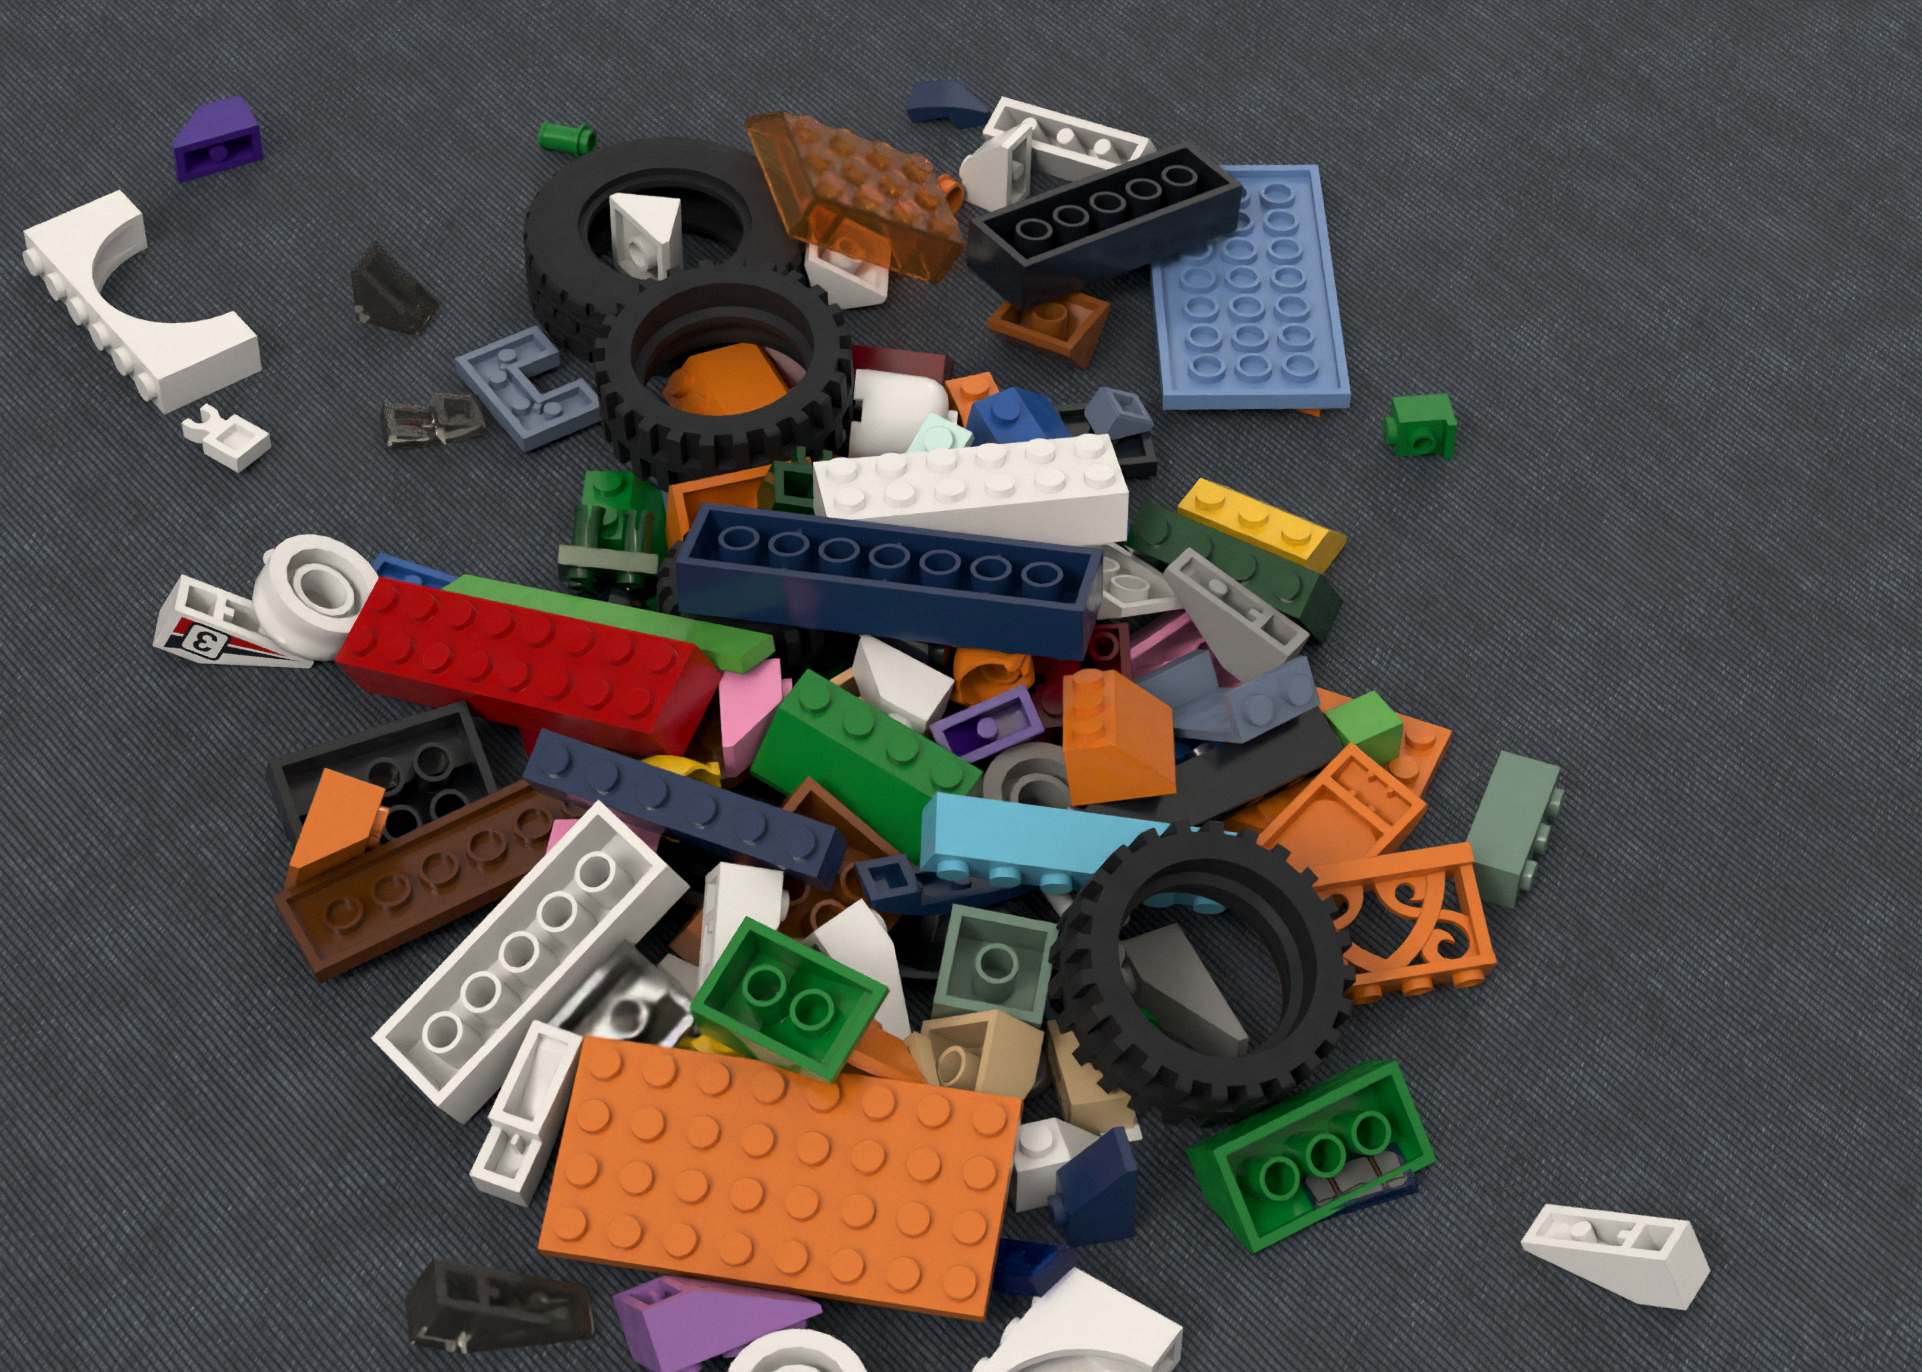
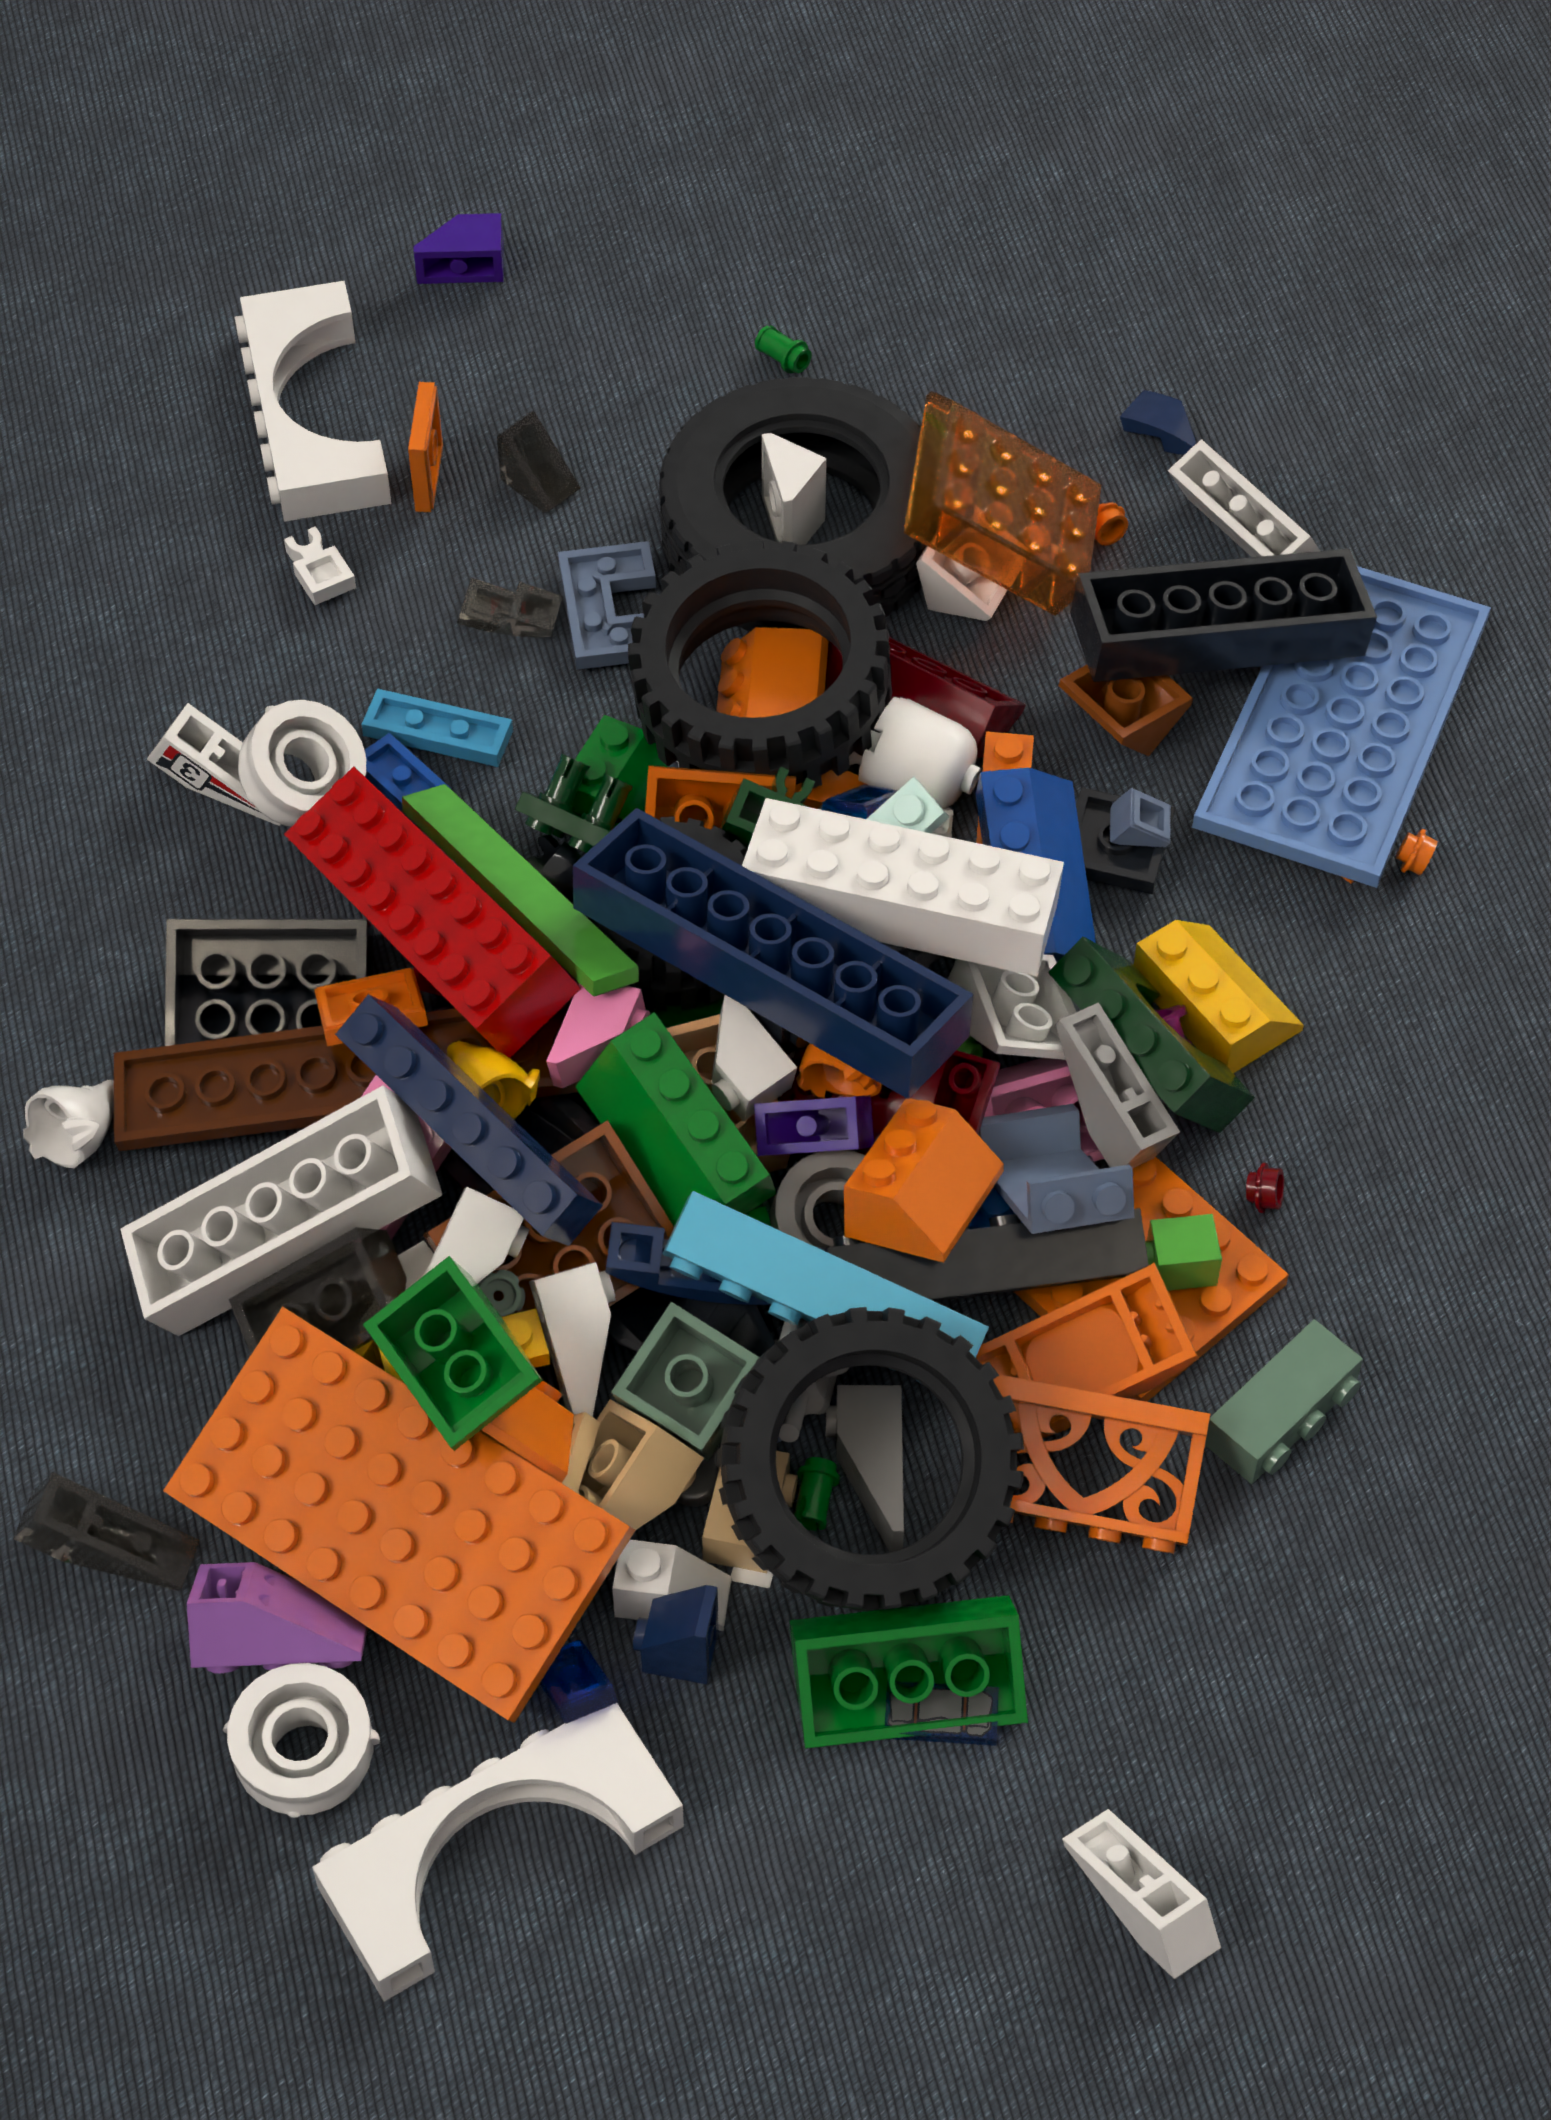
camera: 25 degrees right, 10 degrees up
(256, 975) = (68, 1122): none -> white hat
(282, 304) = (425, 447): none -> orange tile
(338, 827) = (185, 1010): orange slope -> none
(425, 535) = (438, 727): none -> dark azure plate
(496, 775) = (340, 1000): none -> orange tile
(528, 1114) = (213, 1356): white slope -> none
(999, 170) = (1167, 517): white slope -> none
(1366, 371) = (1416, 852): none -> orange plate
(1392, 670) = (1265, 1188): none -> dark red plate
(1421, 426) = (1436, 931): green brick -> none

